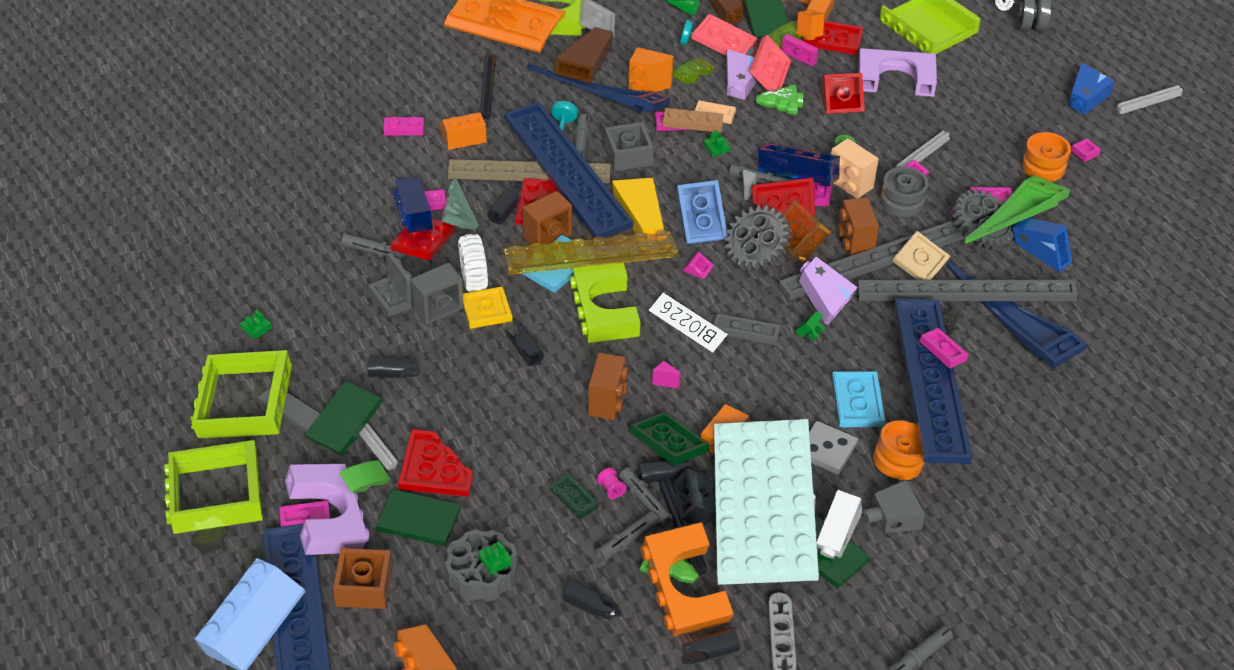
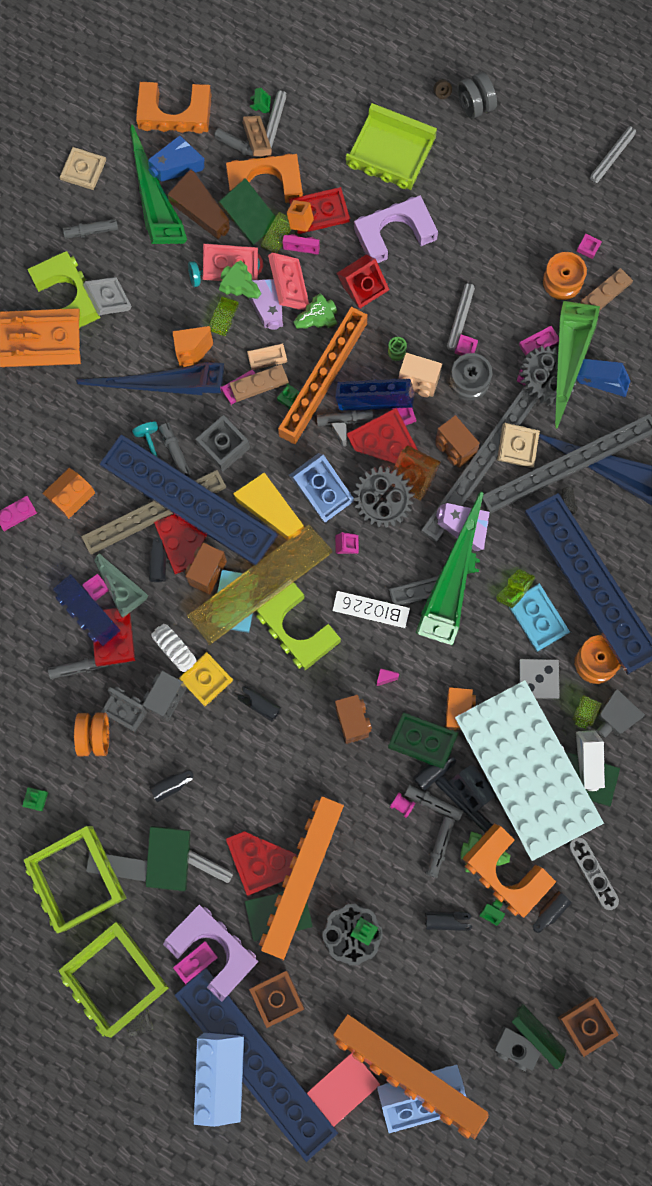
camera: 25 degrees left, 30 degrees up
(346, 291) = (91, 734): none -> orange wheel
(364, 475) = (220, 907): bright green slope -> none
(462, 490) = (302, 878): none -> orange brick
(487, 89) = (58, 427): black axle -> none
(574, 496) = (381, 832): clear green plate -> none
(585, 56) = (124, 352): reddish brown slope -> none
(645, 616) = (492, 912): none -> green tile
(722, 43) = (239, 281): none -> bright green rock
(747, 140) = (323, 375): none -> orange brick
(763, 342) = (443, 608): none -> green plate
(851, 363) = (517, 587): none -> clear neon green slope
(864, 487) = (586, 712): none -> clear neon green brick
(944, 348) = (591, 552): dark pink plate -> none
(1089, 89) = (560, 170): blue slope -> none
(1089, 188) = (608, 289): none -> medium nougat plate

